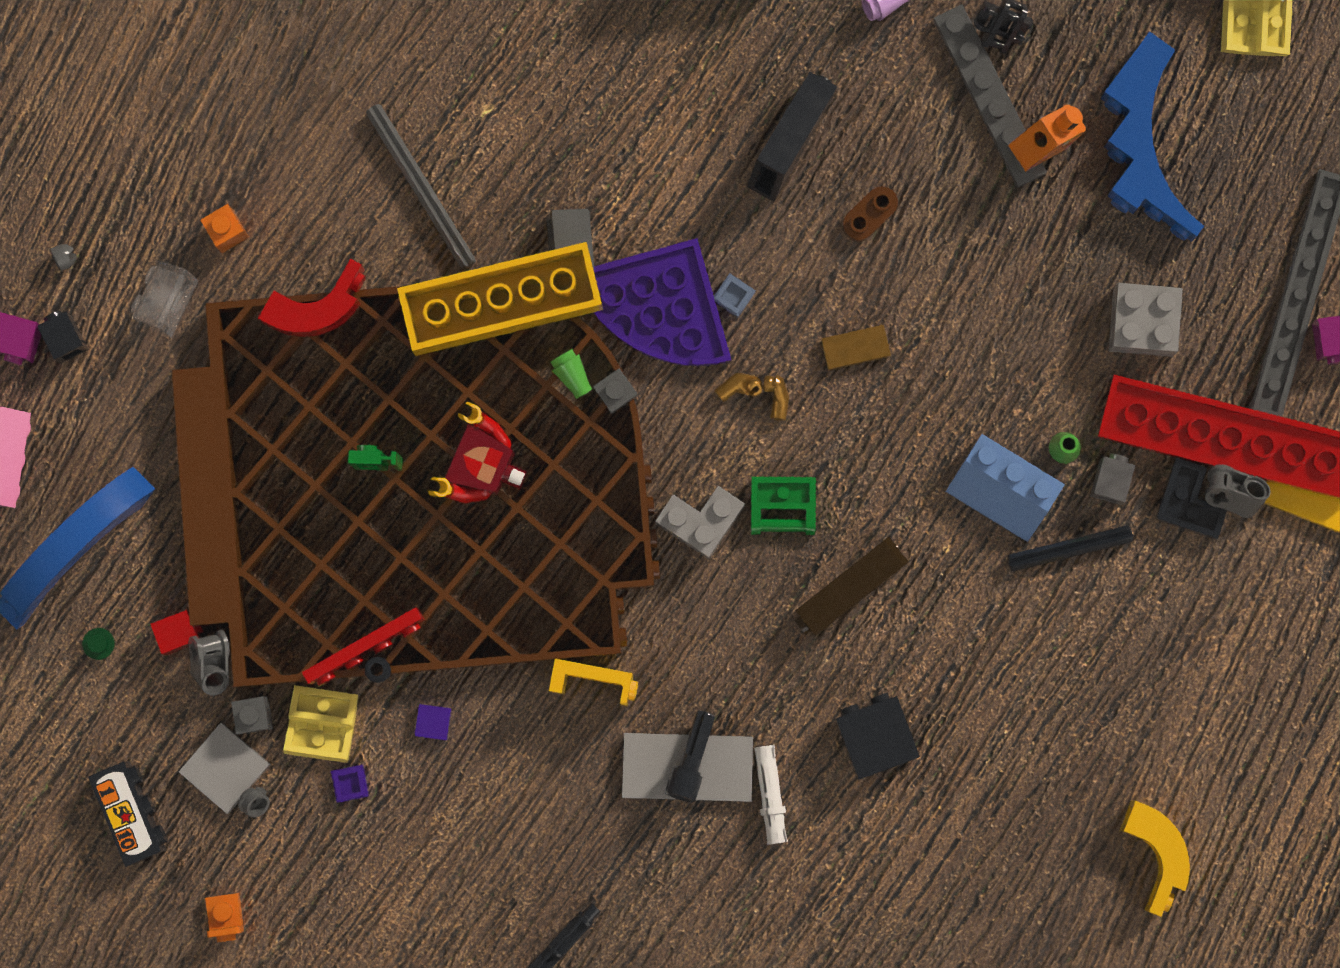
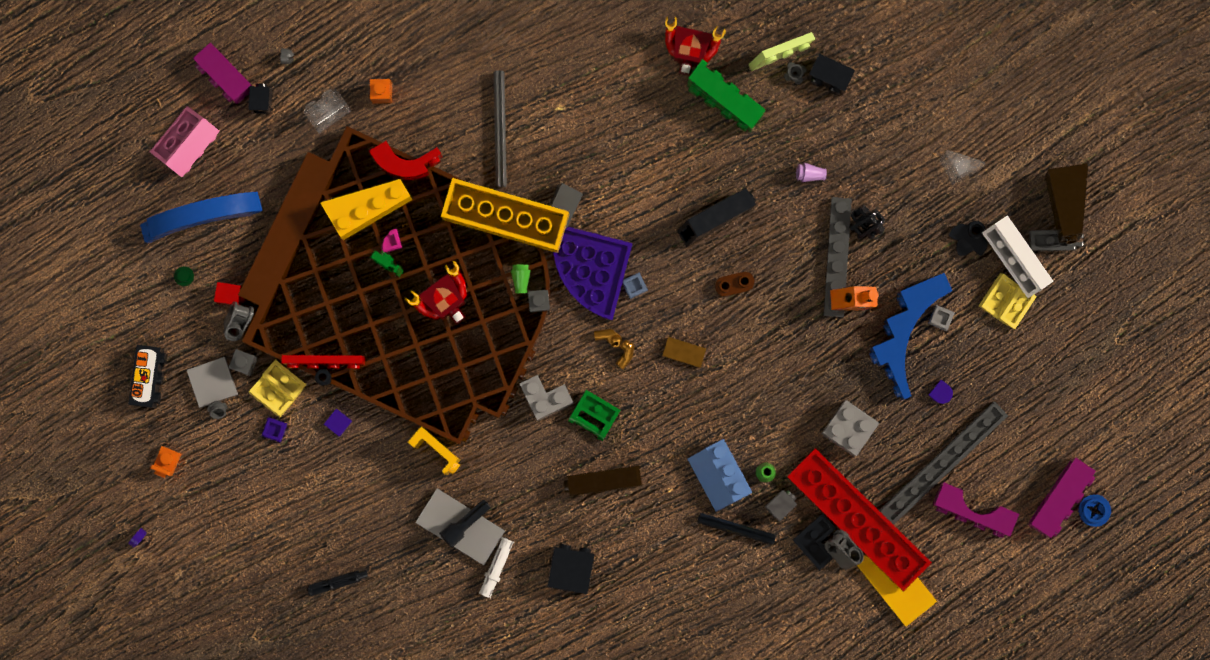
camera: 25 degrees right, 0 degrees up
(298, 399) = (362, 208): none -> yellow wedge
(362, 427) = (391, 242): none -> dark pink tile
(1180, 97) = (941, 318): none -> light grey tile
(1240, 199) = (941, 393): none -> dark purple tile

